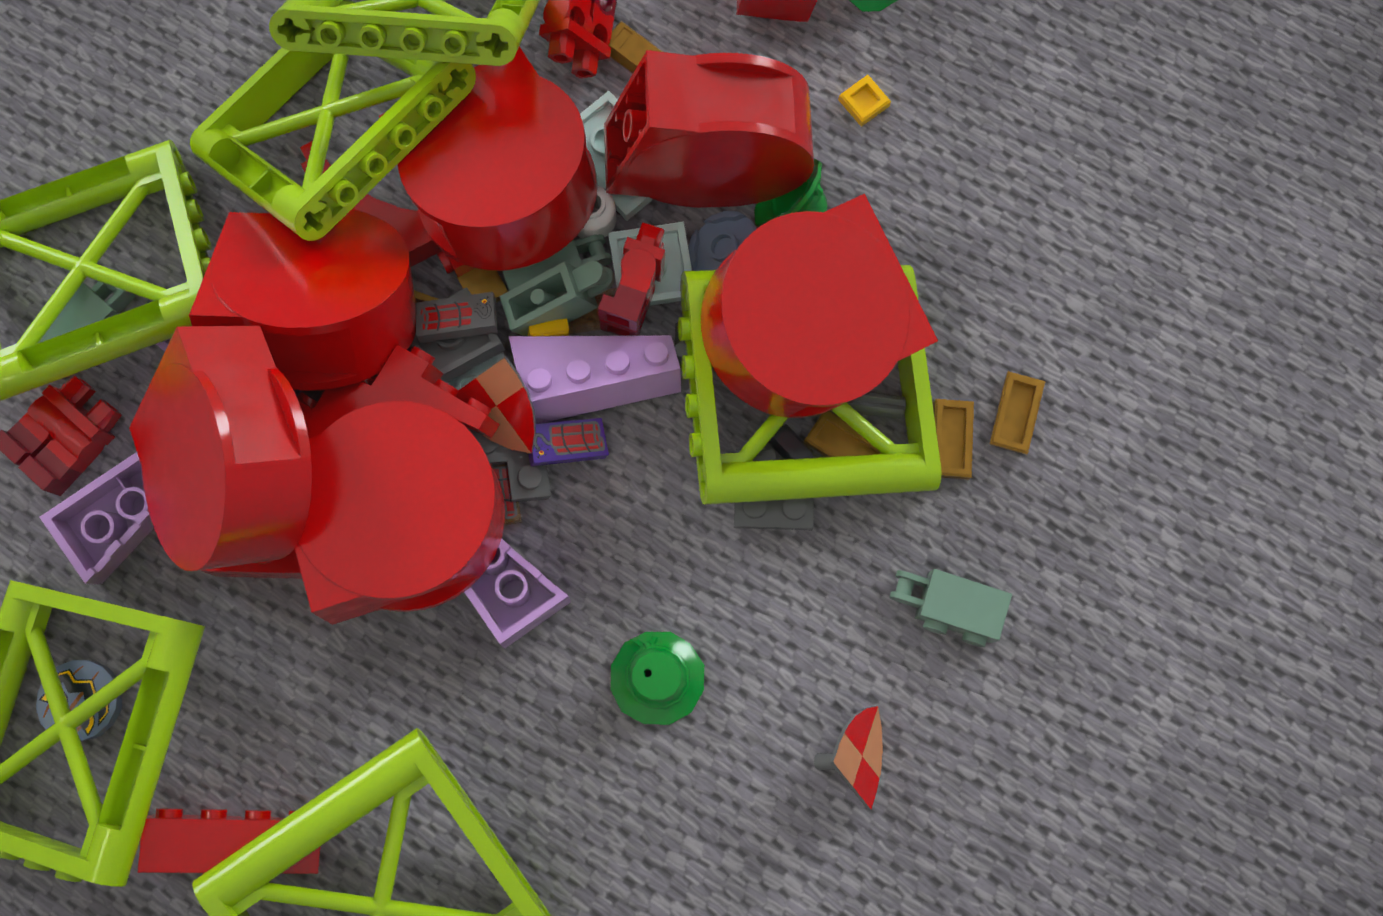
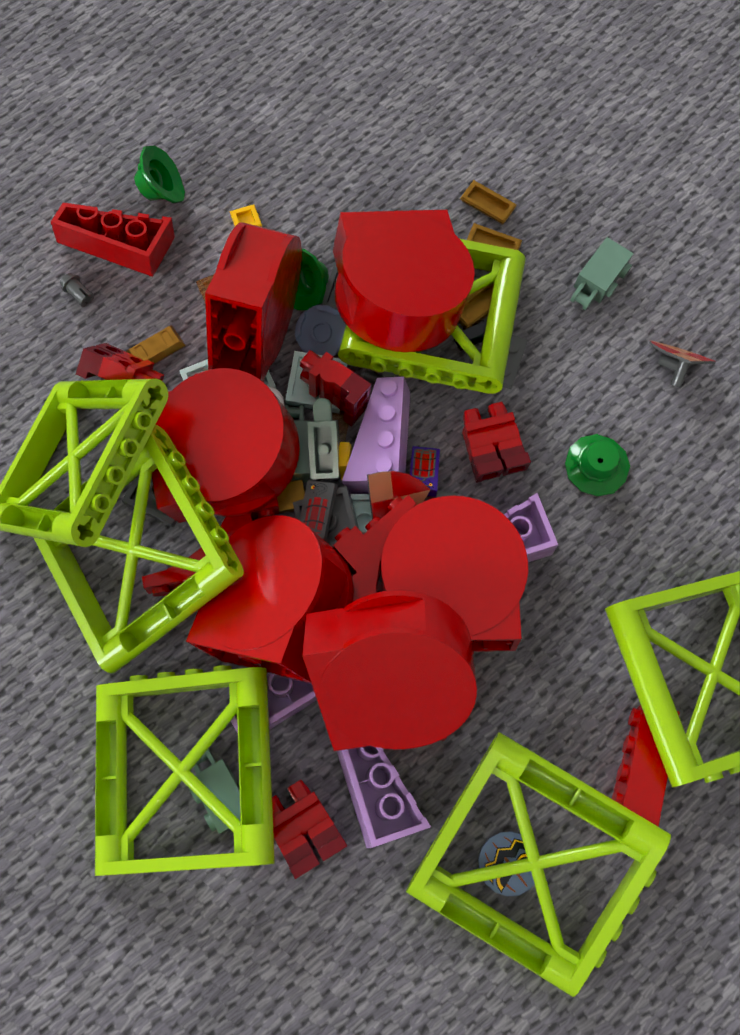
camera: 75 degrees left, 5 degrees down
(644, 511) = (494, 443): none -> red hips

